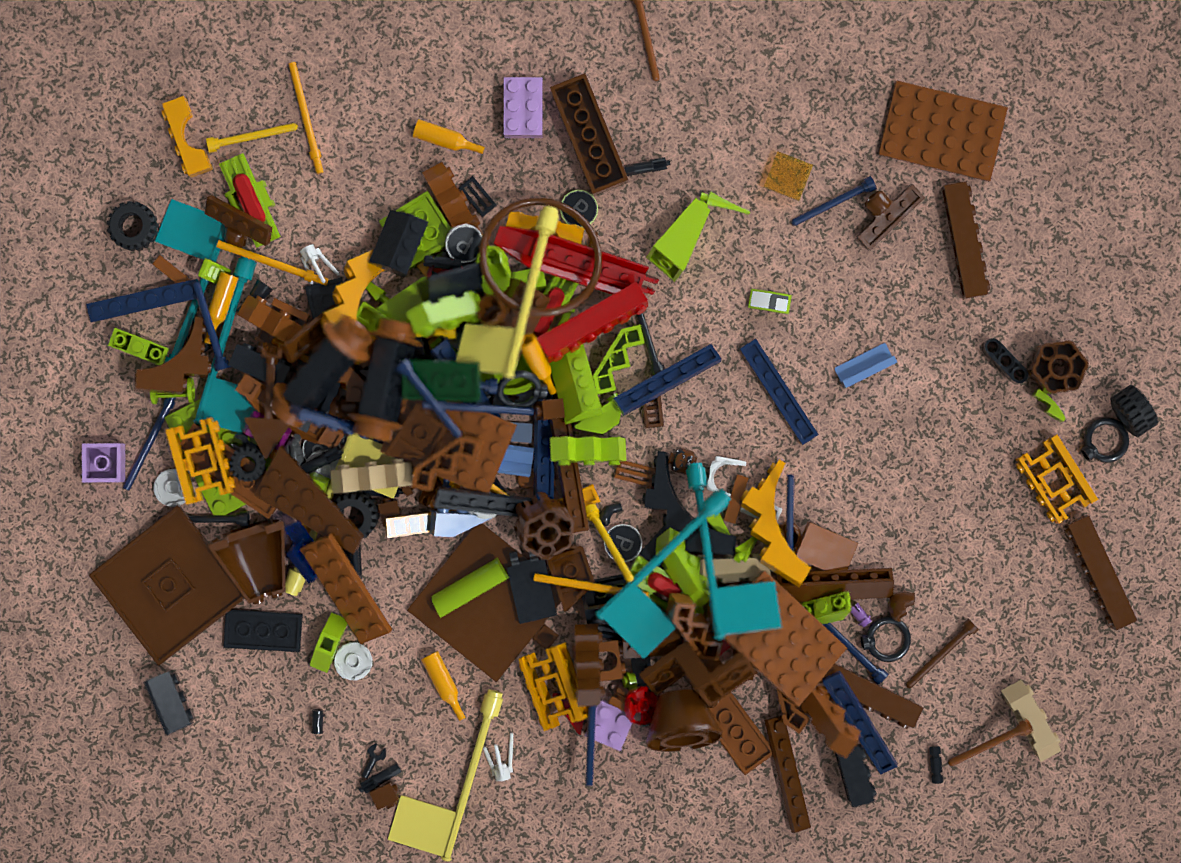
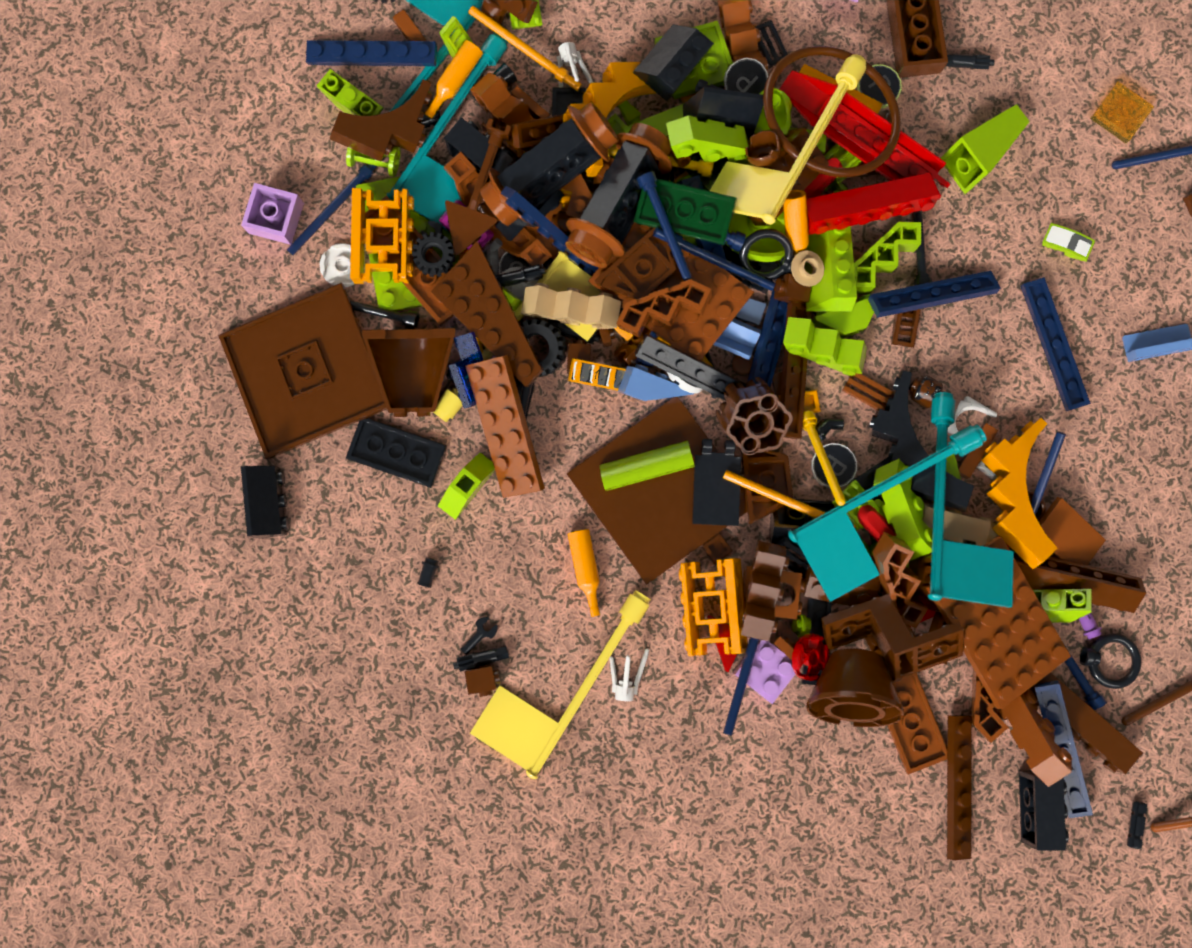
camera: 15 degrees right, 5 degrees down
(220, 361) = (436, 136): dark blue piece -> none
(359, 661) = (491, 522): white tile -> none
(547, 394) = (798, 270): none -> tan piece
(714, 200) = (1040, 122): lime piece -> none
(744, 550) = (977, 509): lime piece -> none
(898, 604) = (1141, 623): reddish brown hair -> none

